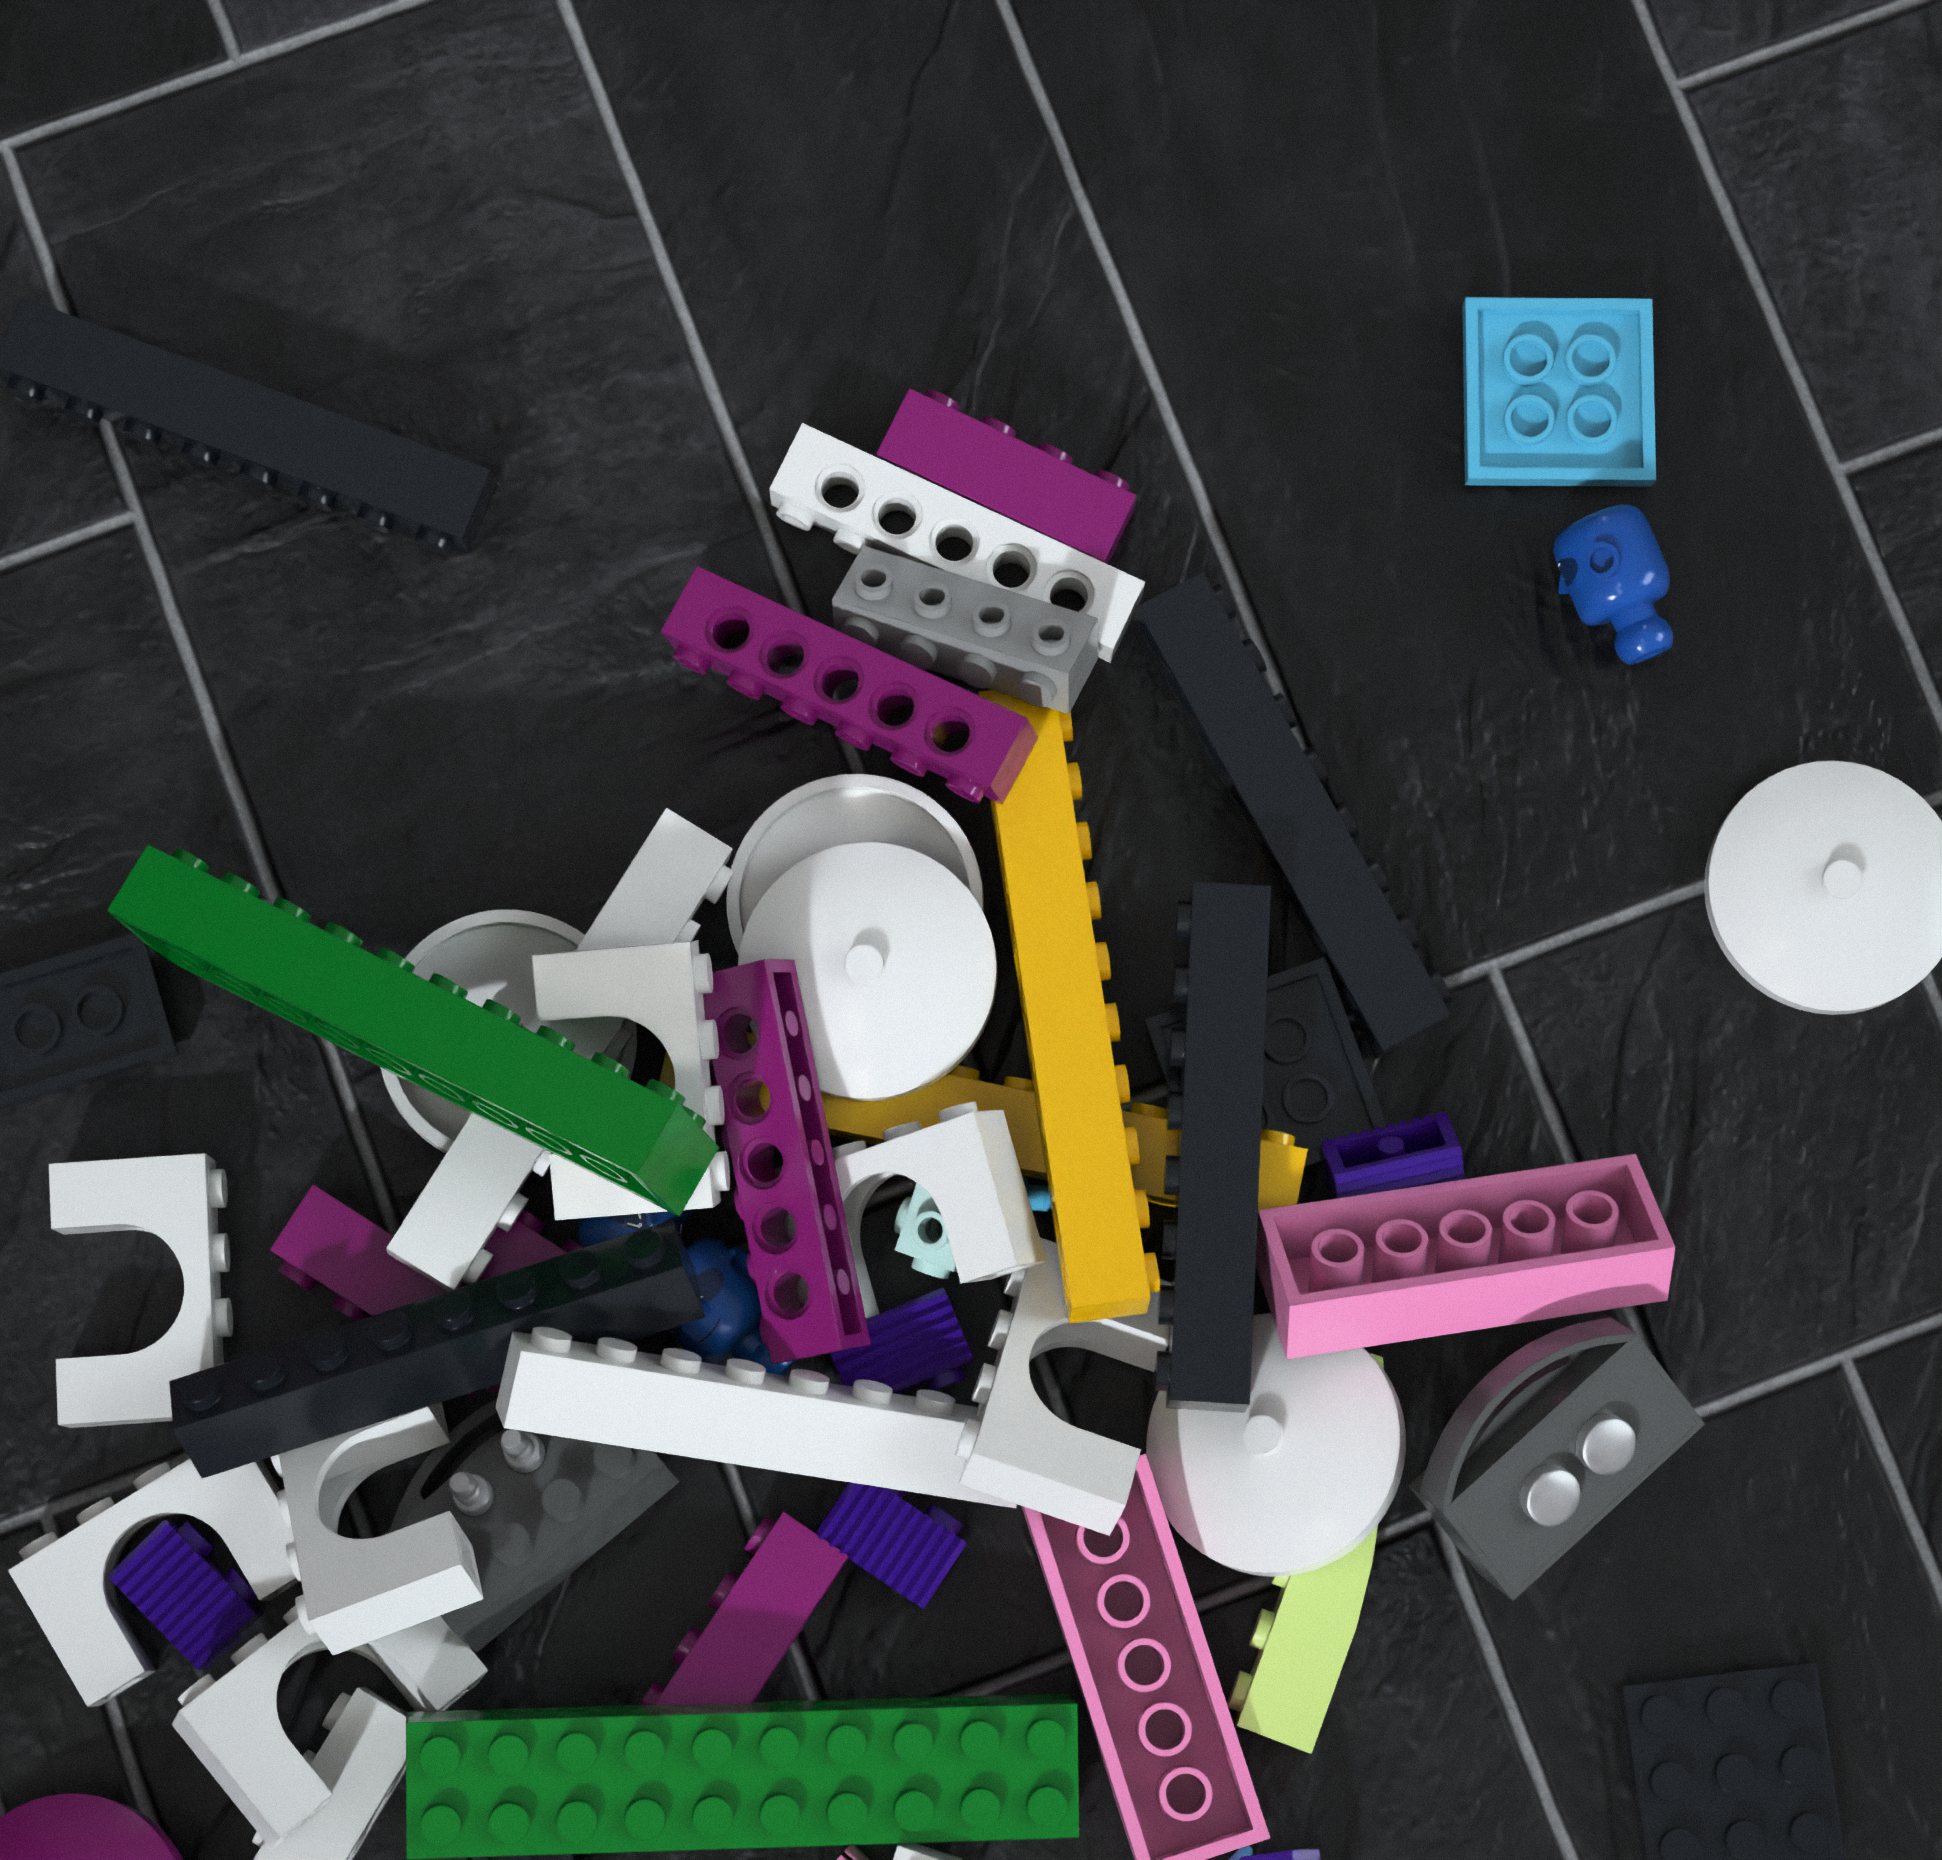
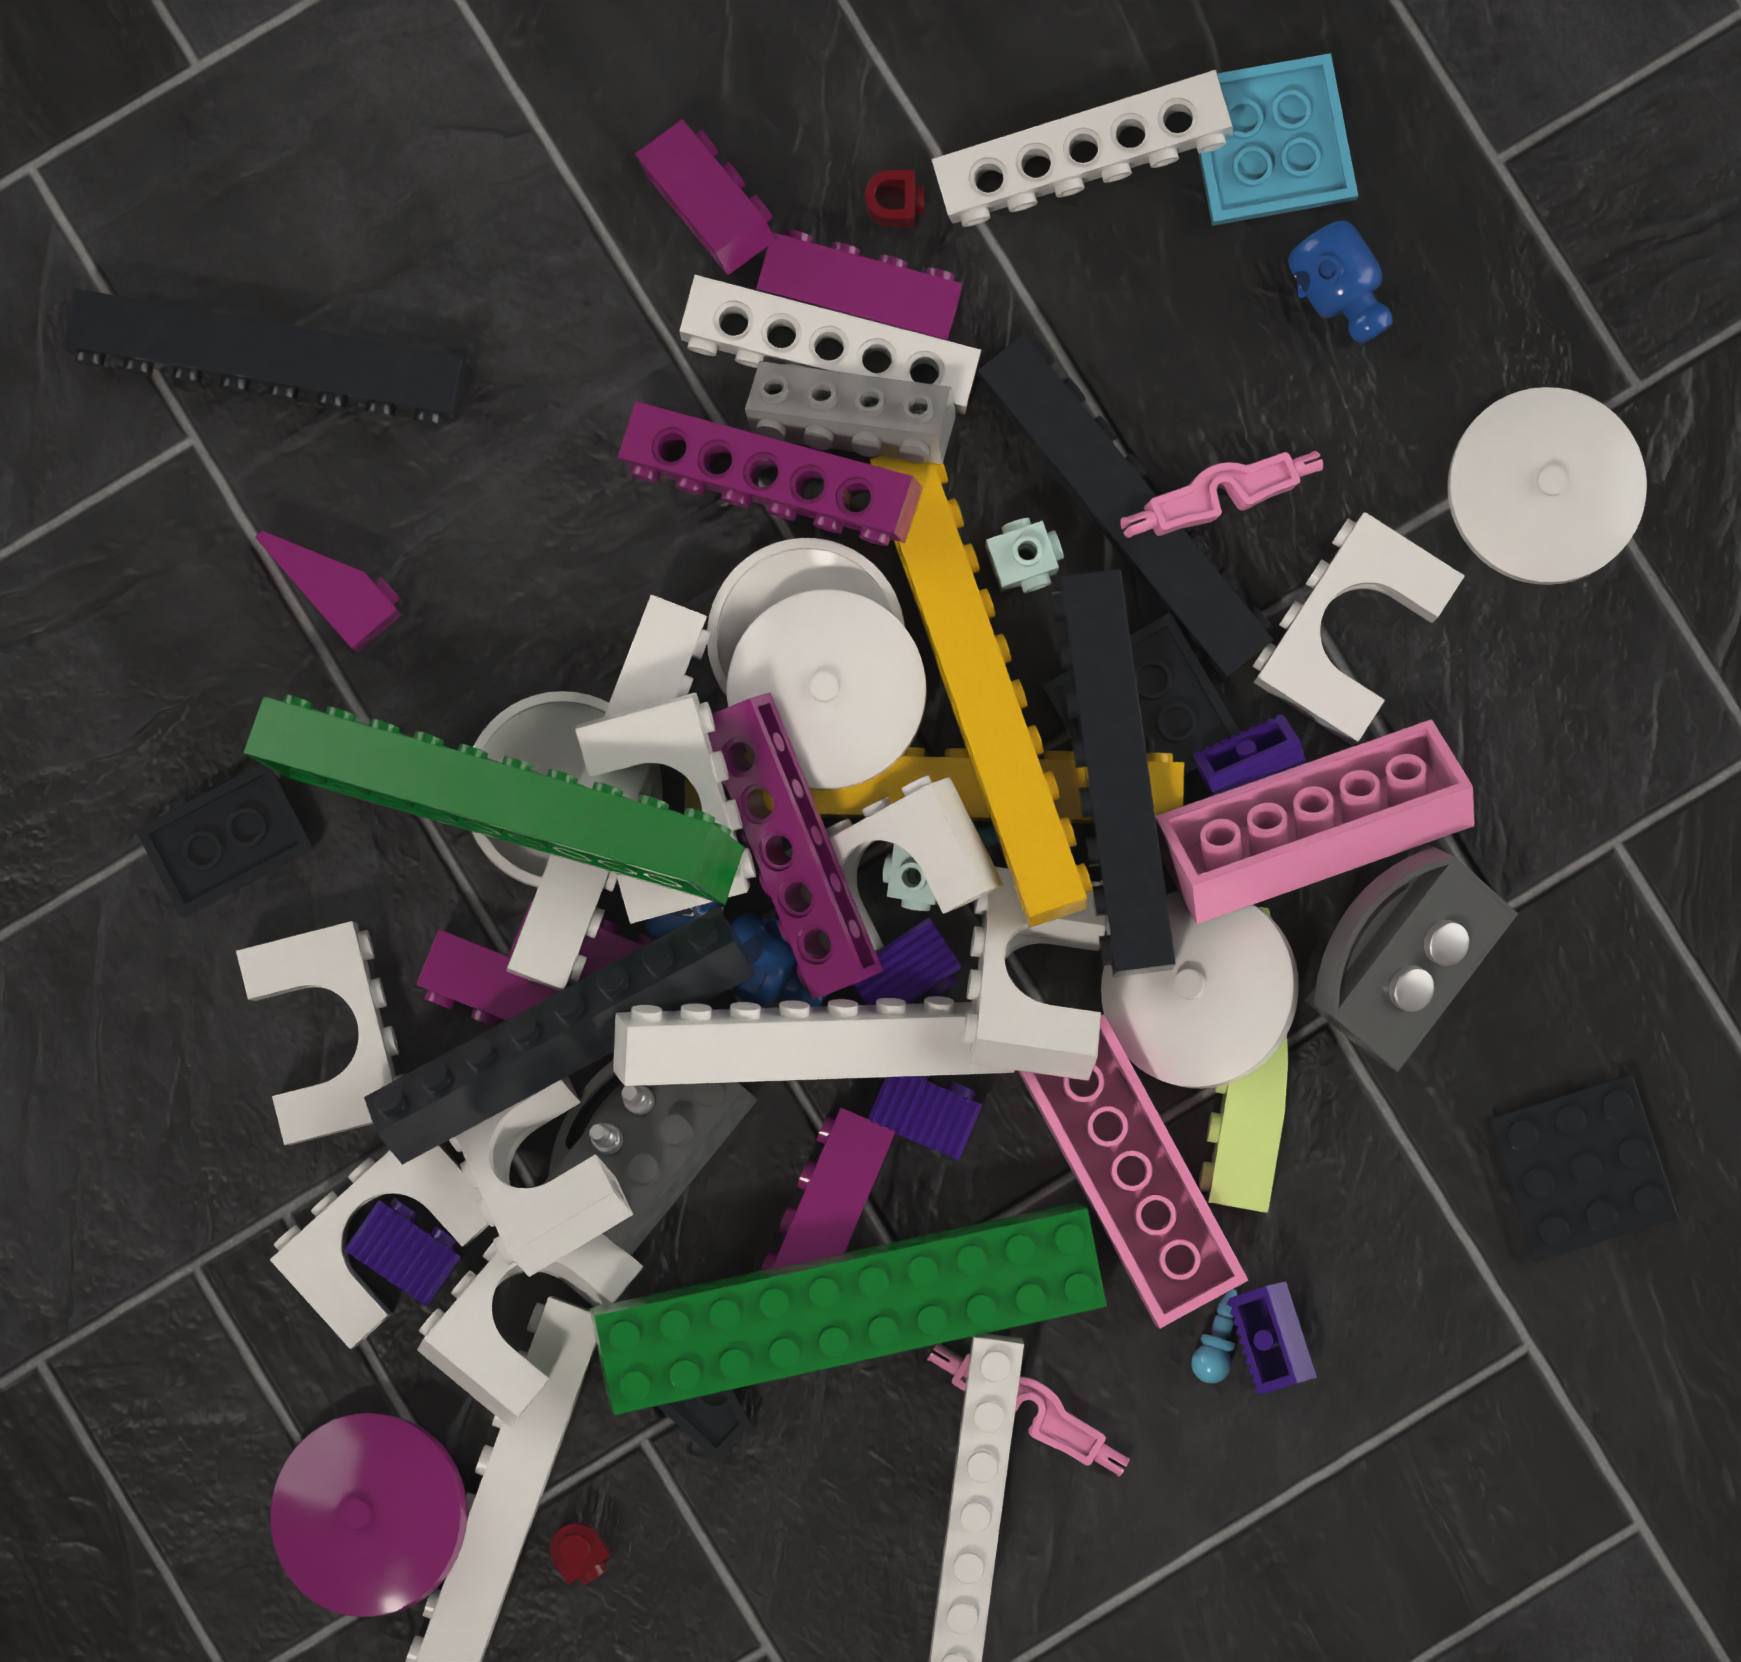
camera: 10 degrees left, 5 degrees up
(278, 738) = (340, 592): none -> magenta slope
(837, 329) = (707, 195): none -> magenta brick
(1071, 376) = (894, 198): none -> dark red plate
(1138, 869) = (1014, 571): none -> light aqua brick
(1348, 333) = (1008, 155): none -> white brick
(1387, 821) = (1199, 500): none -> bright pink piece
(1588, 937) = (1371, 559): none -> white arch

